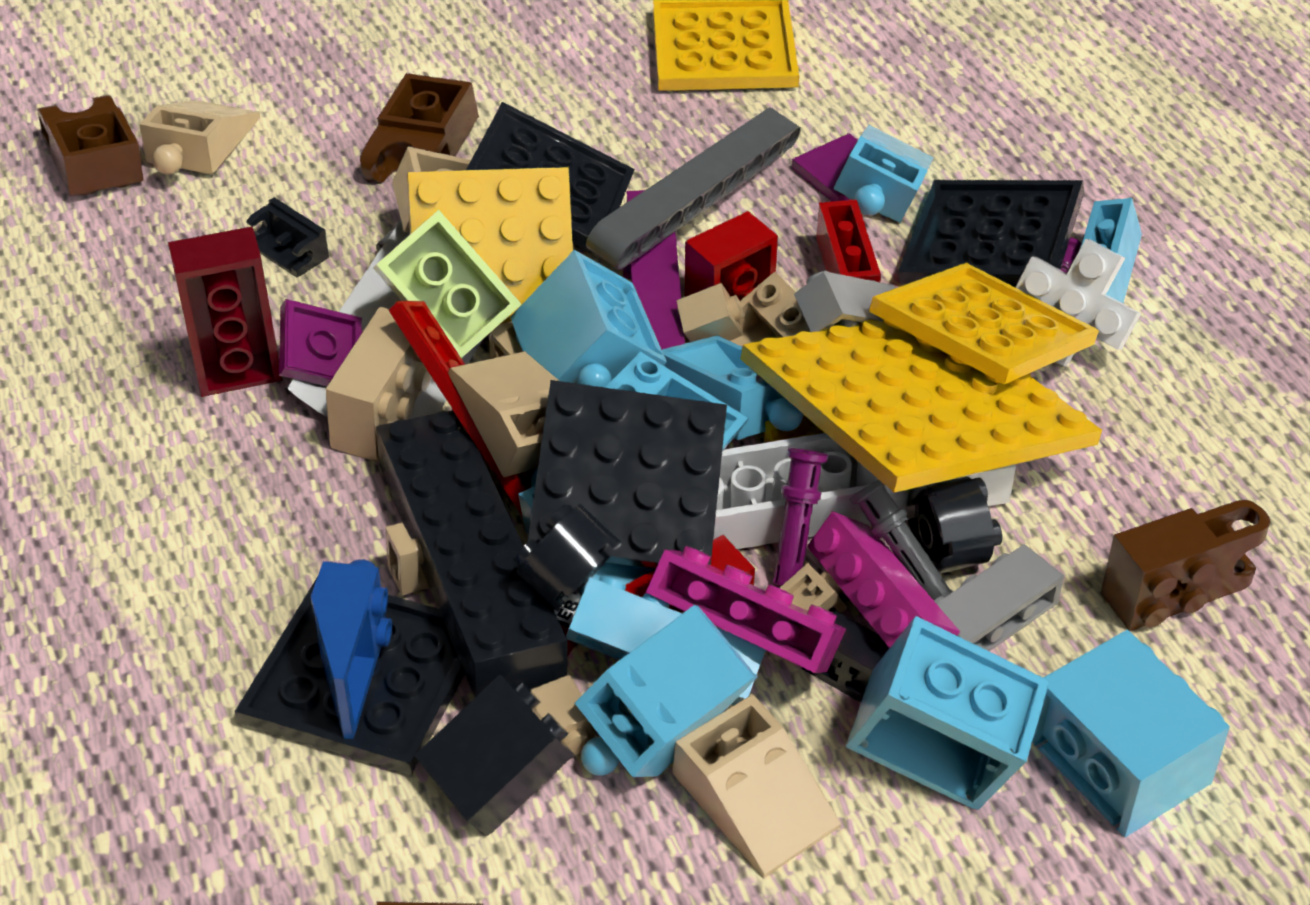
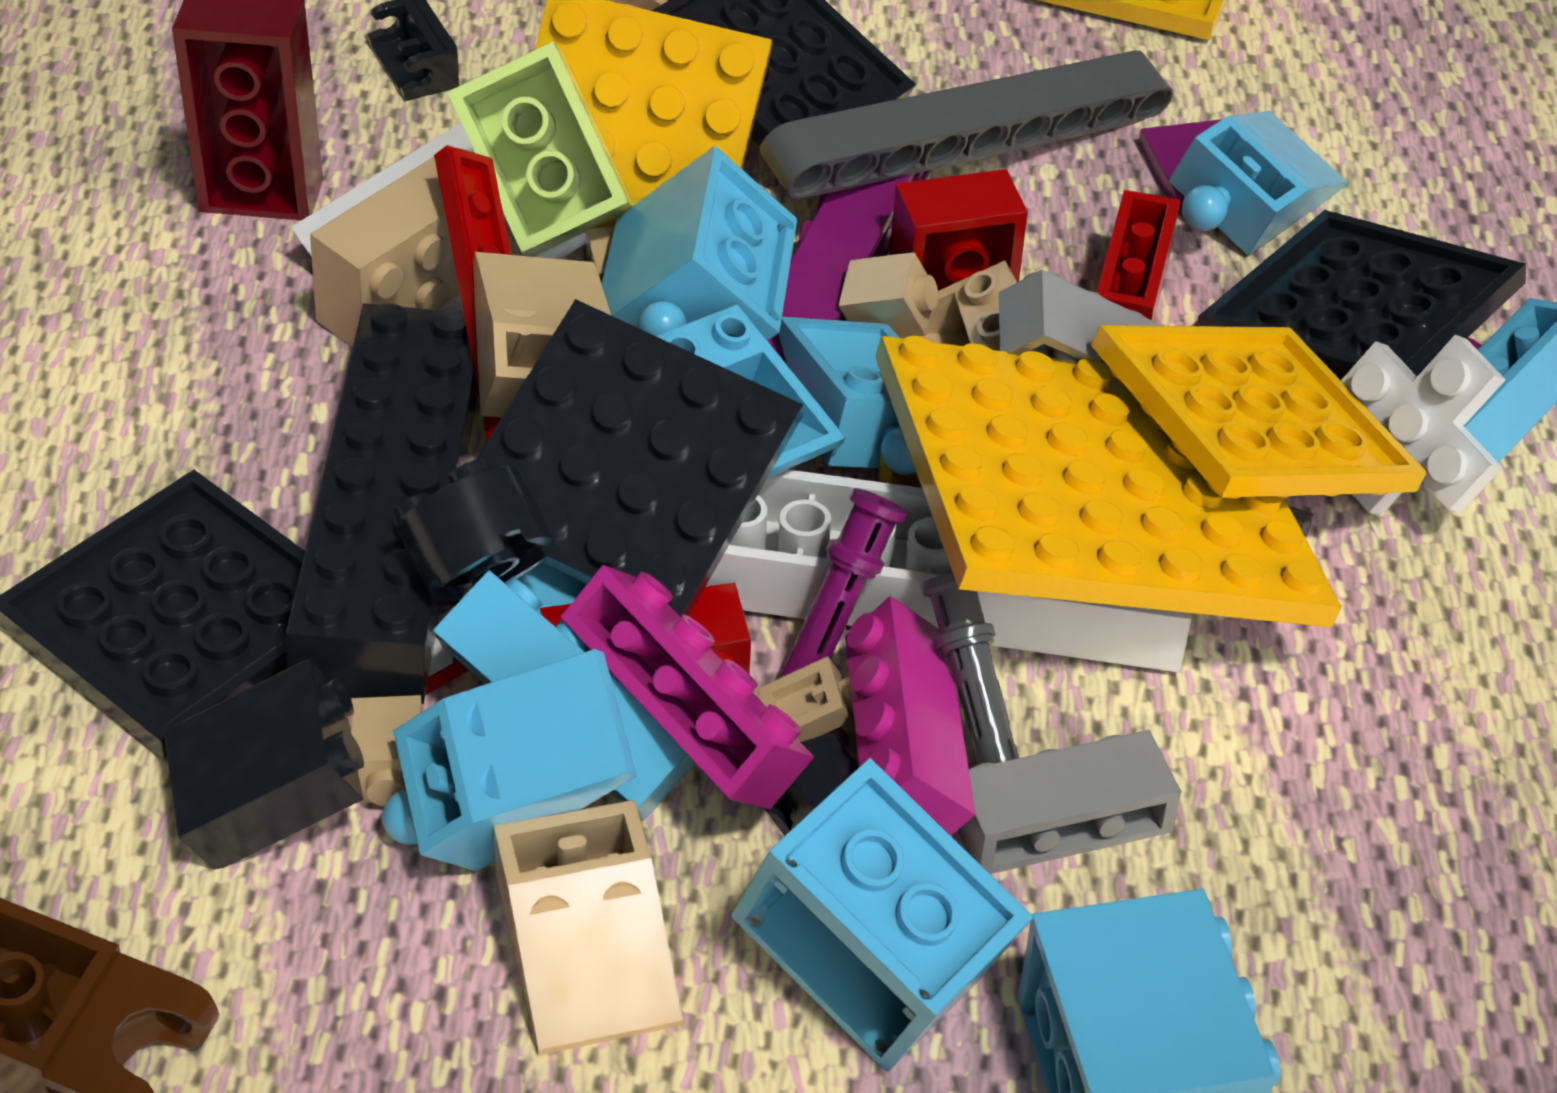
camera: 20 degrees right, 0 degrees up
(314, 341) = (347, 169): magenta tile -> none
(350, 633) = (157, 551): blue slope -> none
(405, 559) = (303, 479): tan bracket -> none
(954, 523) = (1062, 671): black brick -> none
(1181, 562) = (1371, 830): reddish brown brick -> none

